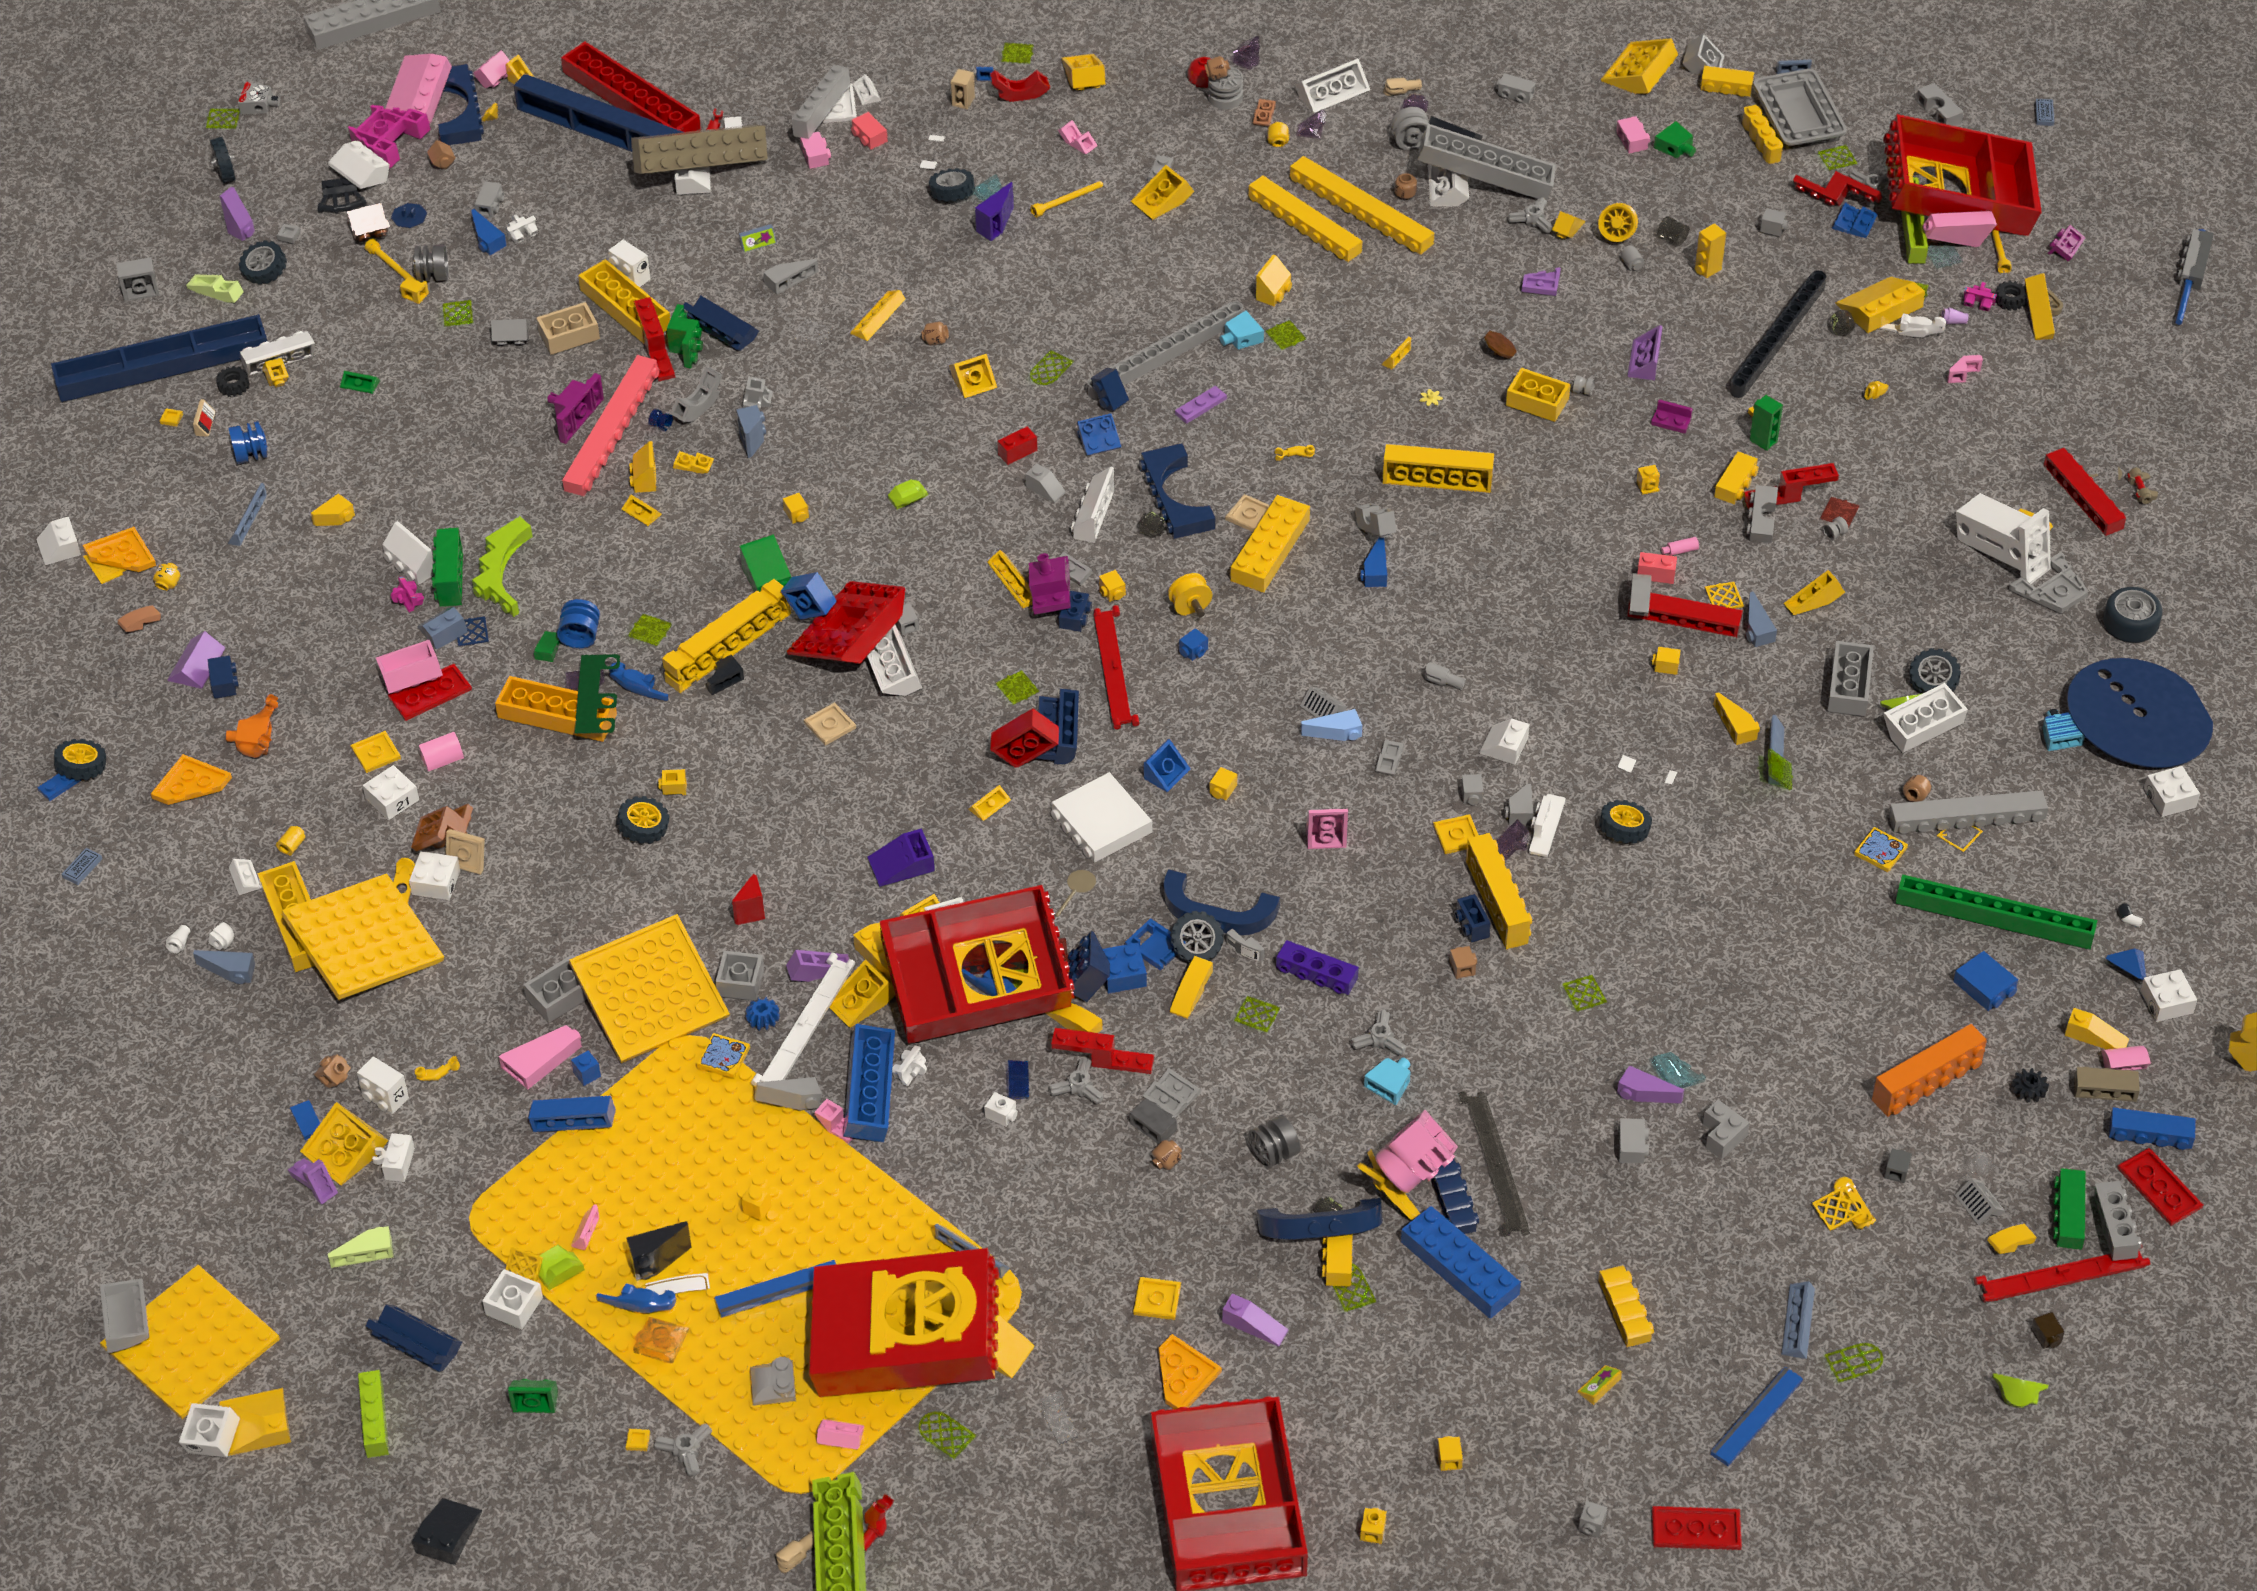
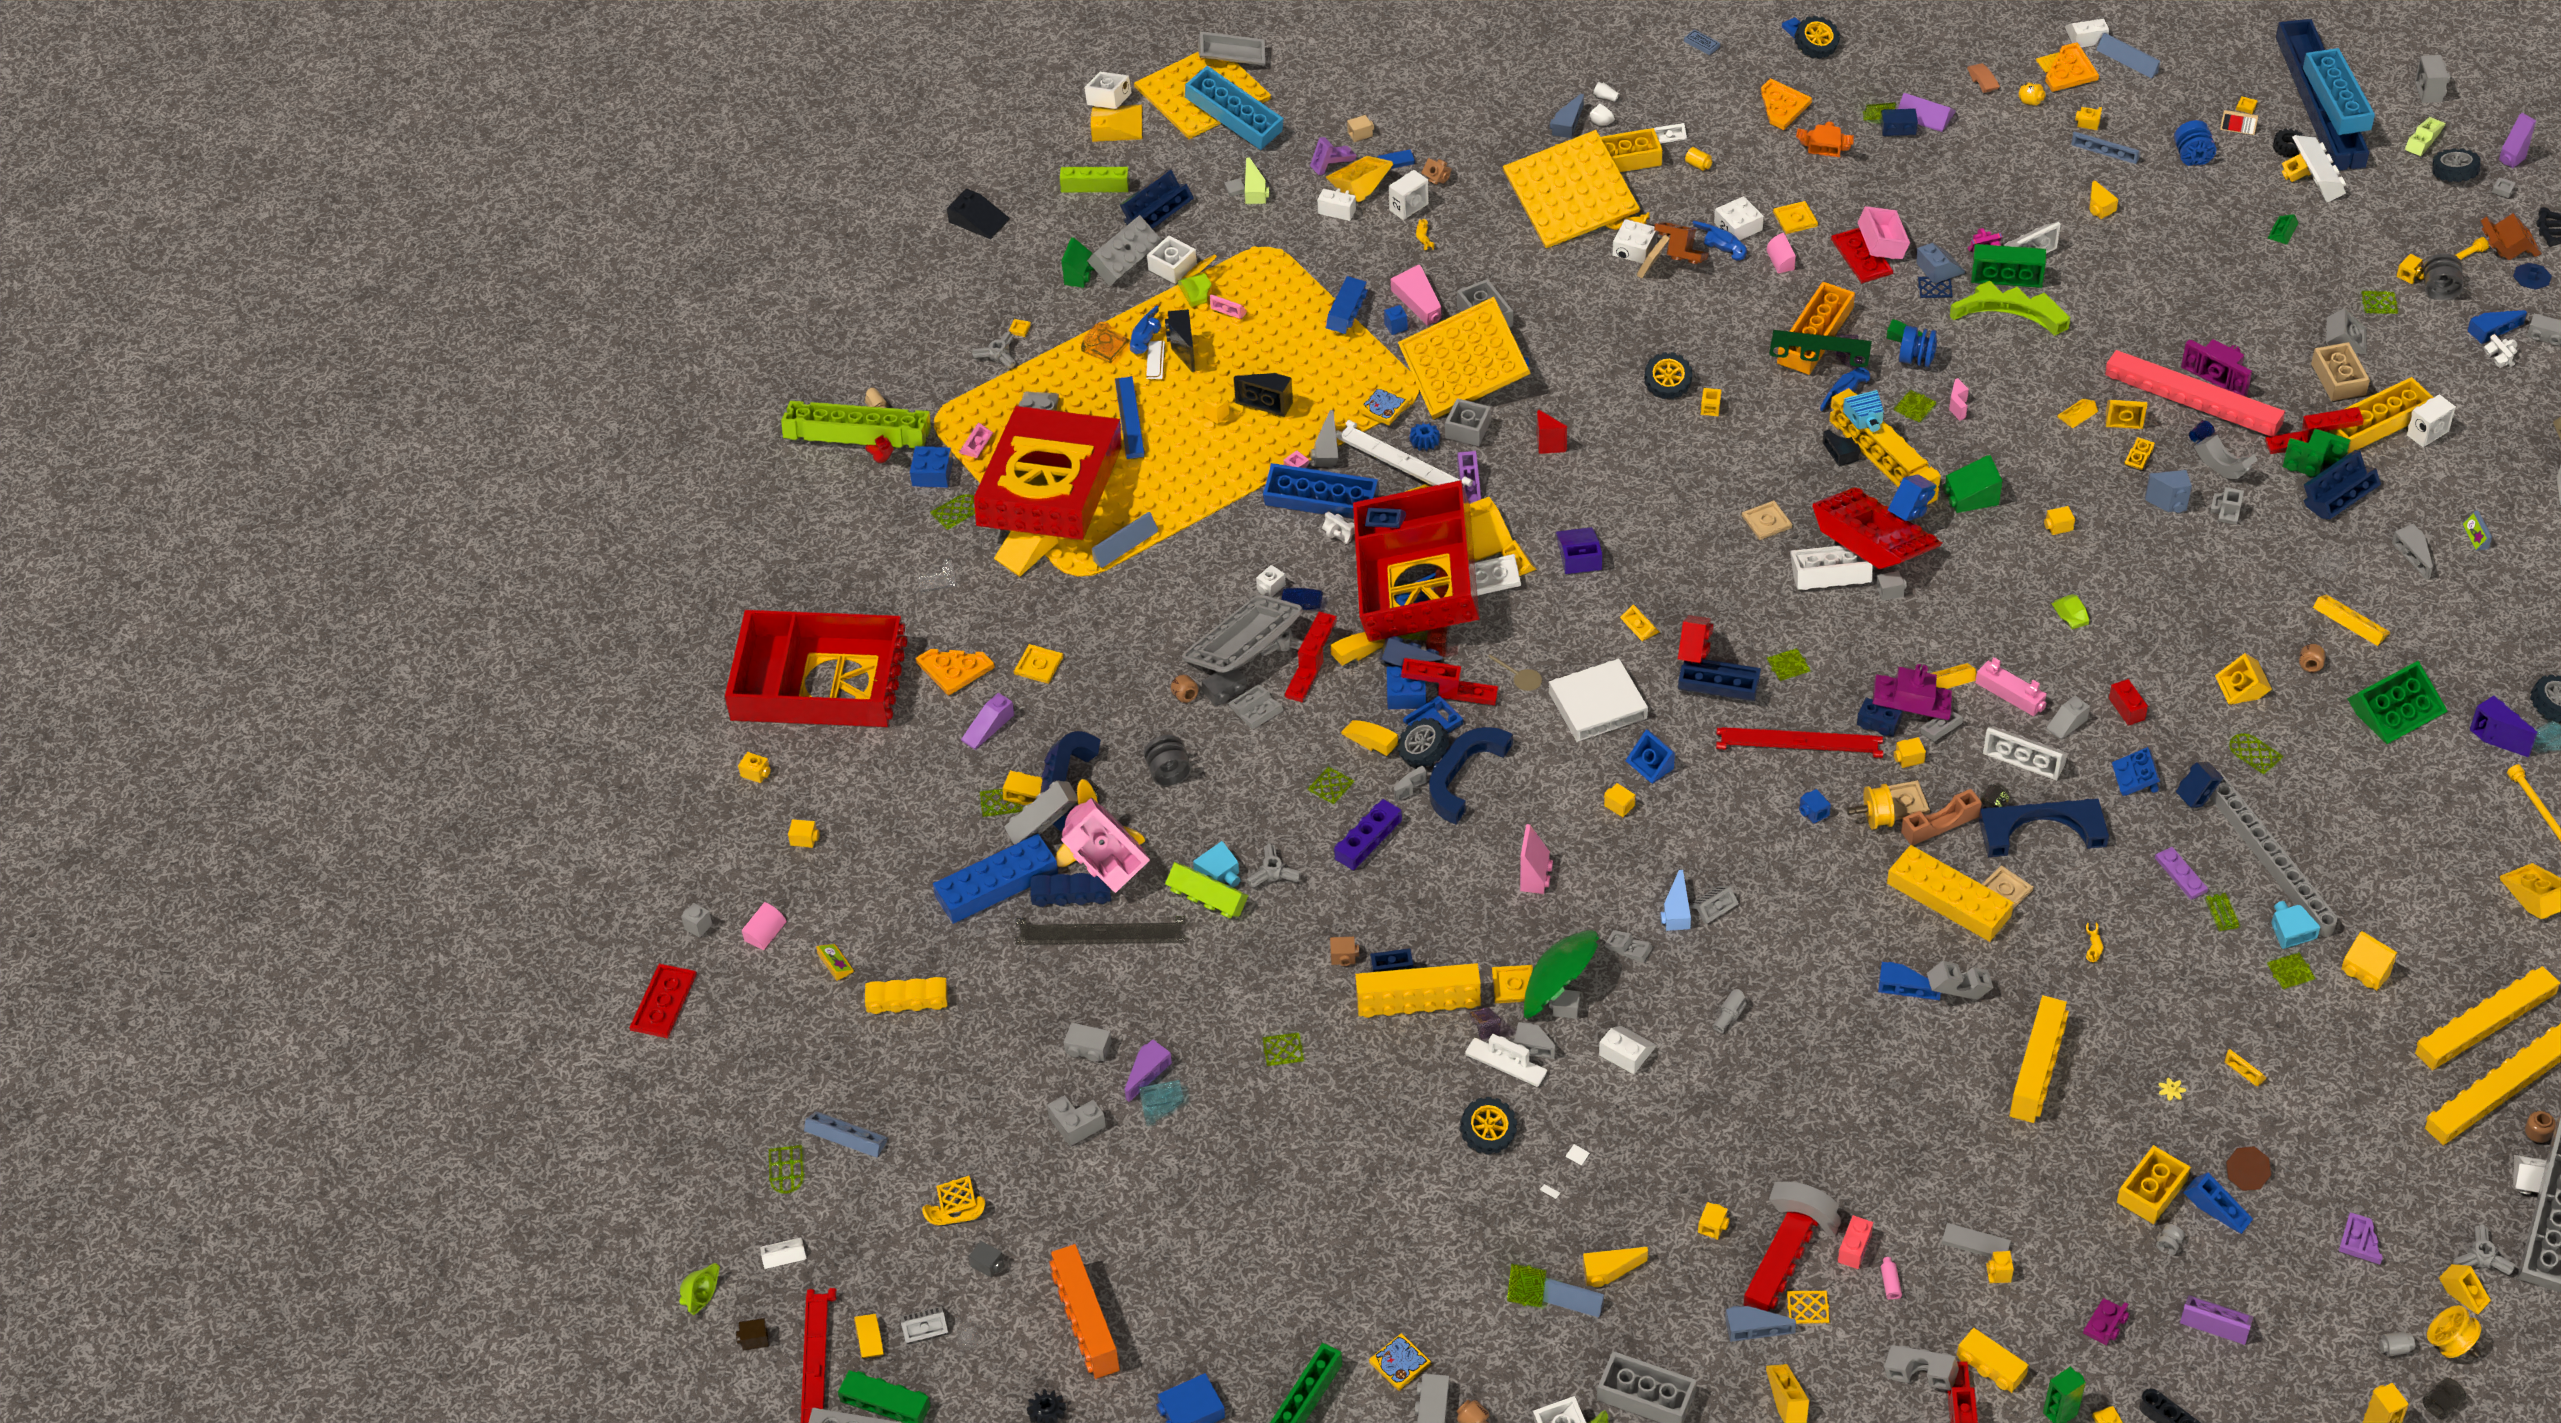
camera: 105 degrees right, 0 degrees up
(99, 507) = (2128, 55): none -> sand blue slope
(180, 330) = (2338, 91): none -> dark azure brick
(202, 529) = (2088, 118): none -> yellow brick
(207, 693) = (1873, 111): none -> clear neon green piece
(241, 1283) = (1234, 107): none -> dark azure brick
(258, 1160) = (1360, 128): none -> tan brick
(368, 1270) = (1234, 187): none -> light grey tile
(424, 801) = (1722, 240): none -> blue animal
(507, 1346) = (1124, 250): none -> light grey brick
(635, 595) = (1958, 399): none -> bright pink slope
(701, 635) = (1864, 410): none -> medium azure torso
(734, 1147) = (1264, 392): none -> black slope
(889, 1467) = (931, 466): none -> blue brick
(933, 986) = (1385, 517): none -> dark blue slope
(974, 280) = (2398, 703): none -> green slope
(1017, 524) = (2011, 688): none -> bright pink brick
(1091, 1108) = (1243, 634): none -> light grey wedge
(1114, 927) = (1449, 681): none -> red bracket
(1158, 587) = (1908, 799): none -> tan tile
(1173, 543) = (1959, 811): none -> nougat arch
(1237, 377) = (2216, 898): none -> clear neon green tile
(1385, 1221) = (1042, 812): none -> light grey brick
(1425, 1079) = (1206, 889): none -> lime brick
(1442, 784) = (1557, 969): none -> green brick
(1539, 359) = (2217, 1202): none -> blue slope
(1578, 1459) = (763, 926): none -> bright pink brick
(1624, 500) = (1973, 1240): none -> light grey tile
(1756, 1416) = (756, 1074): blue tile -> none
(1947, 1336) = (783, 1253): none -> white slope

